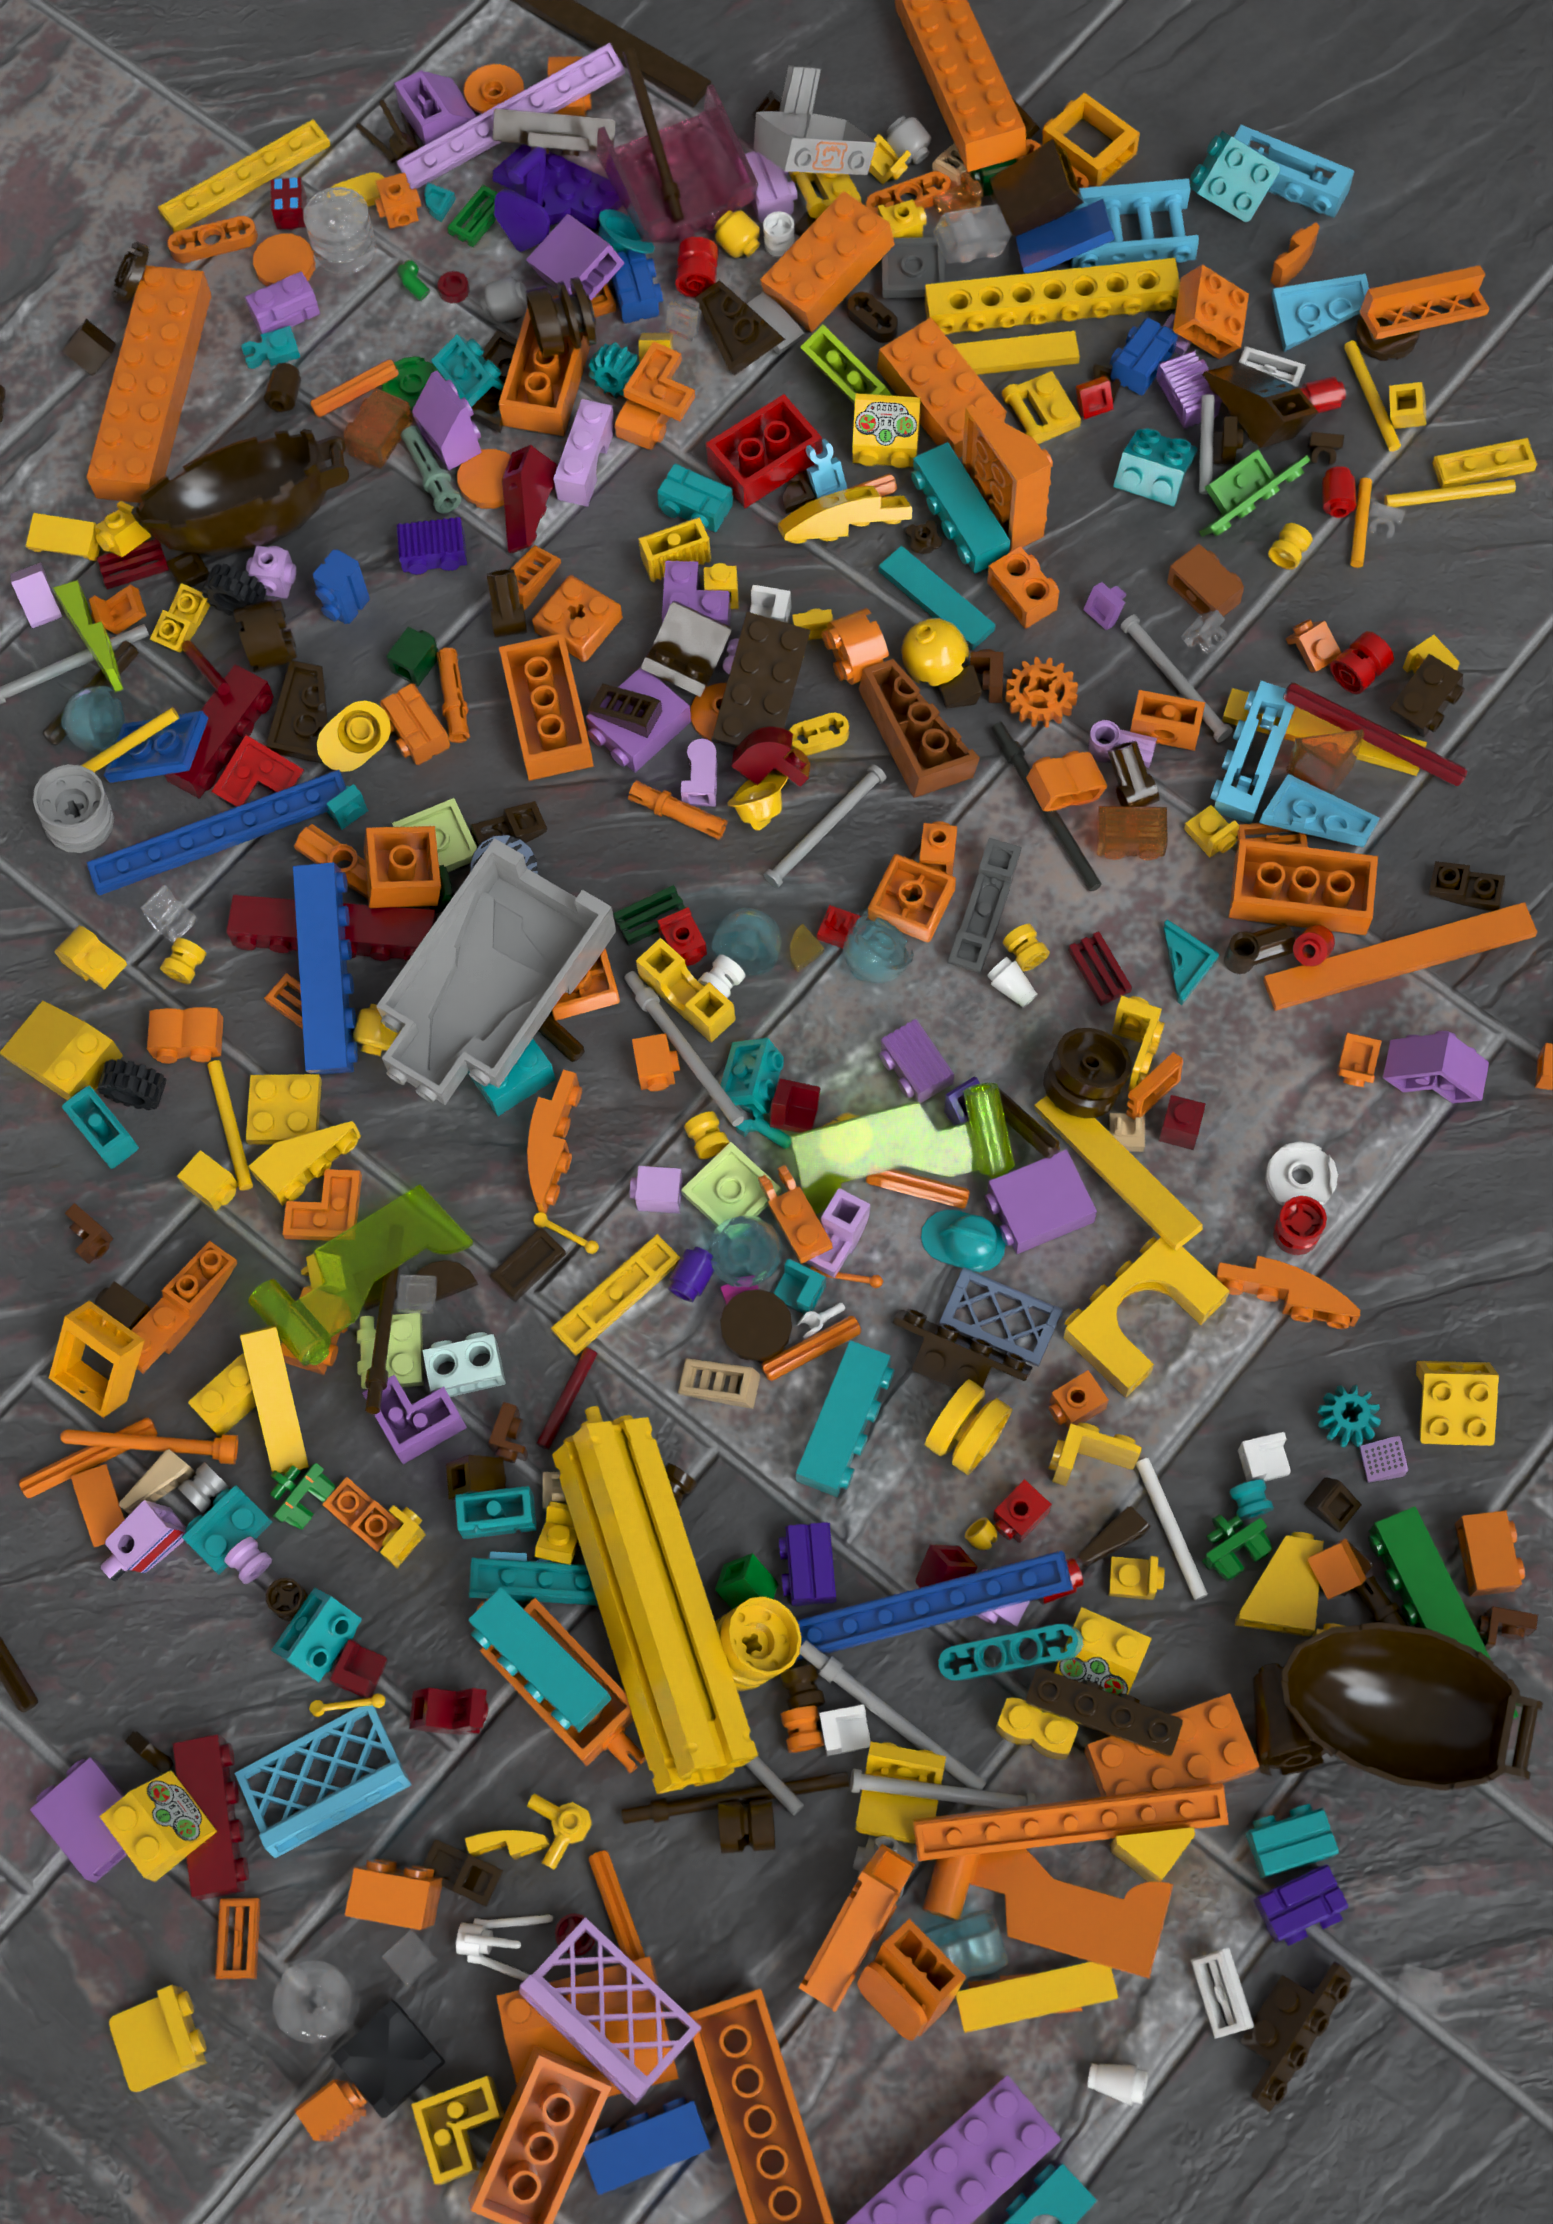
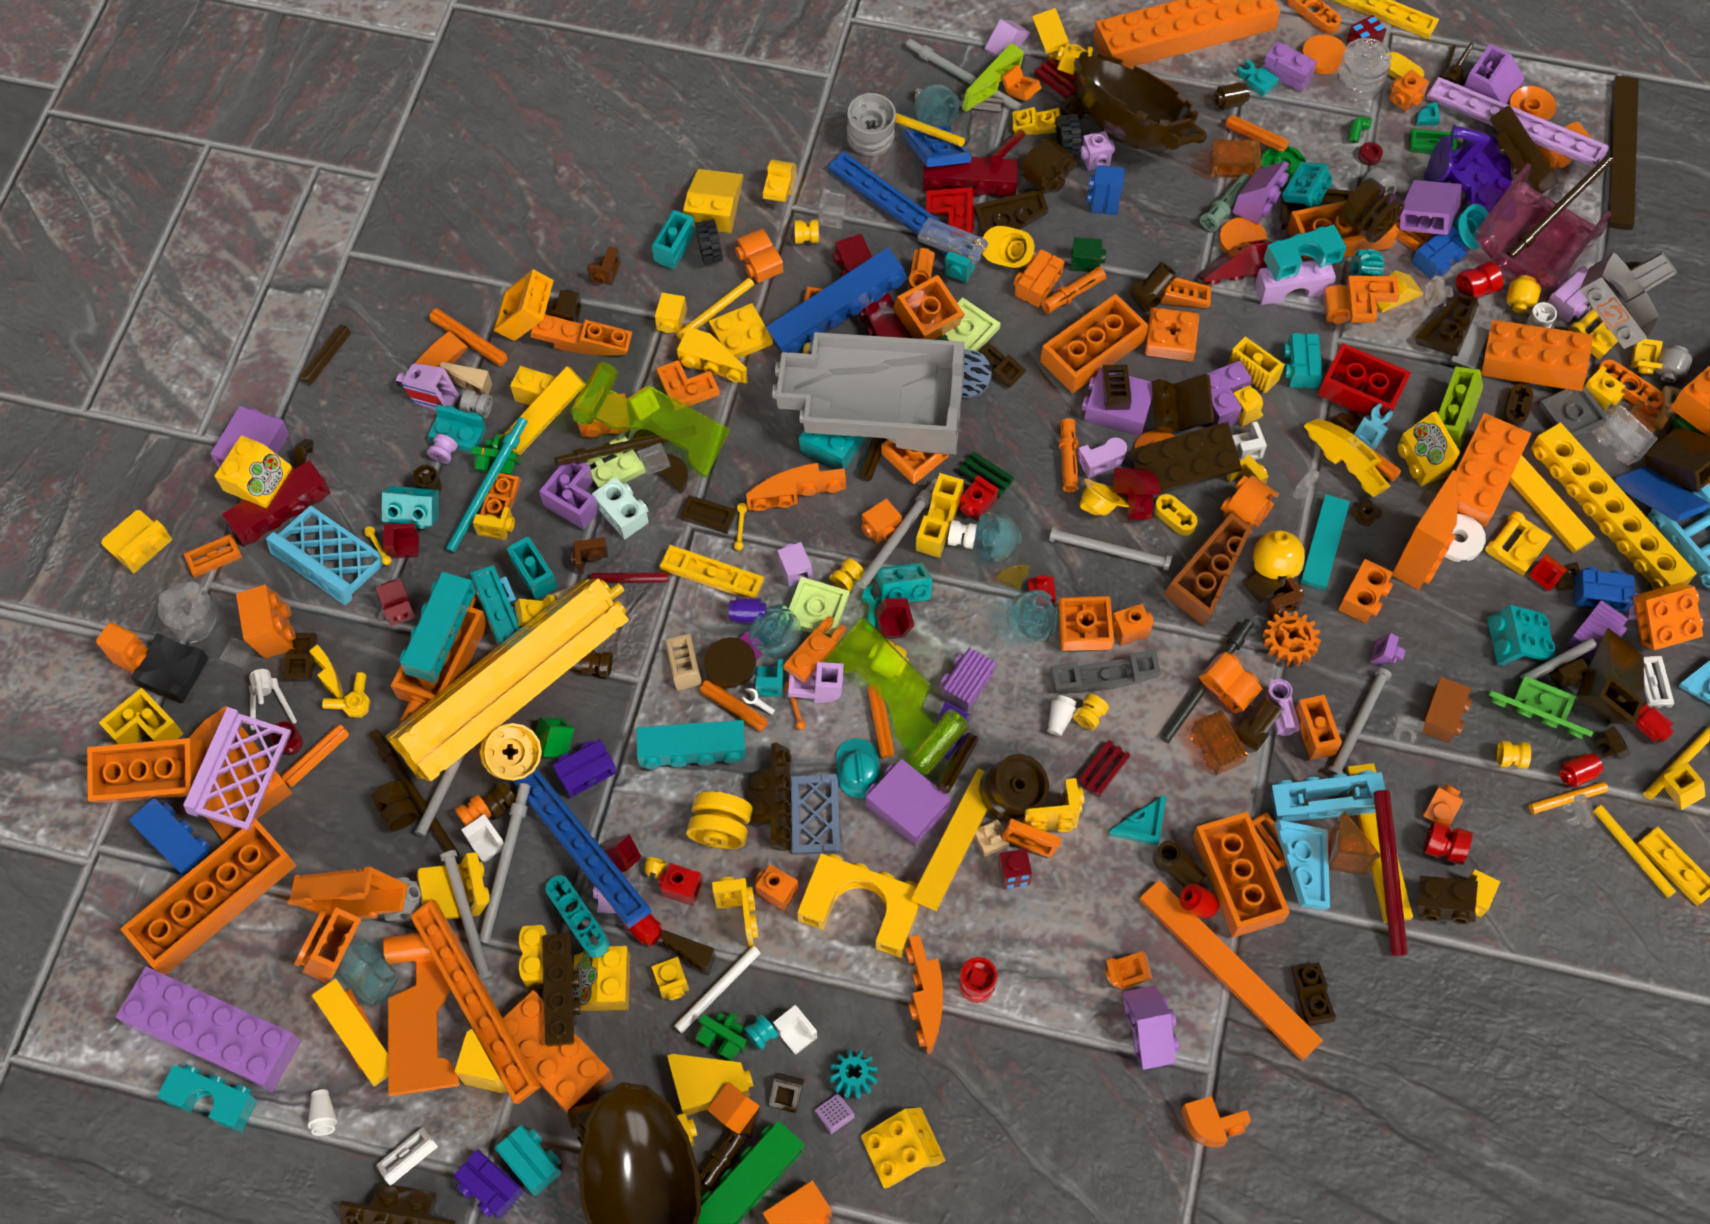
camera: 60 degrees right, 5 degrees down
(221, 1449) = (505, 403): orange piece -> none
(300, 1461) = (510, 442): none -> teal bar
(310, 793) = (952, 239): none -> clear plate
(431, 545) = (1171, 228): dark purple brick -> none
(474, 1475) = (550, 546): dark brown brick -> none
(570, 394) = (1321, 244): none -> teal arch
(857, 578) = (1306, 485): none -> clear tile
(960, 507) = (1398, 526): teal brick -> none
(1212, 831) = (1252, 797): yellow bracket -> none
(1301, 1156) = (1026, 985): white tile -> none

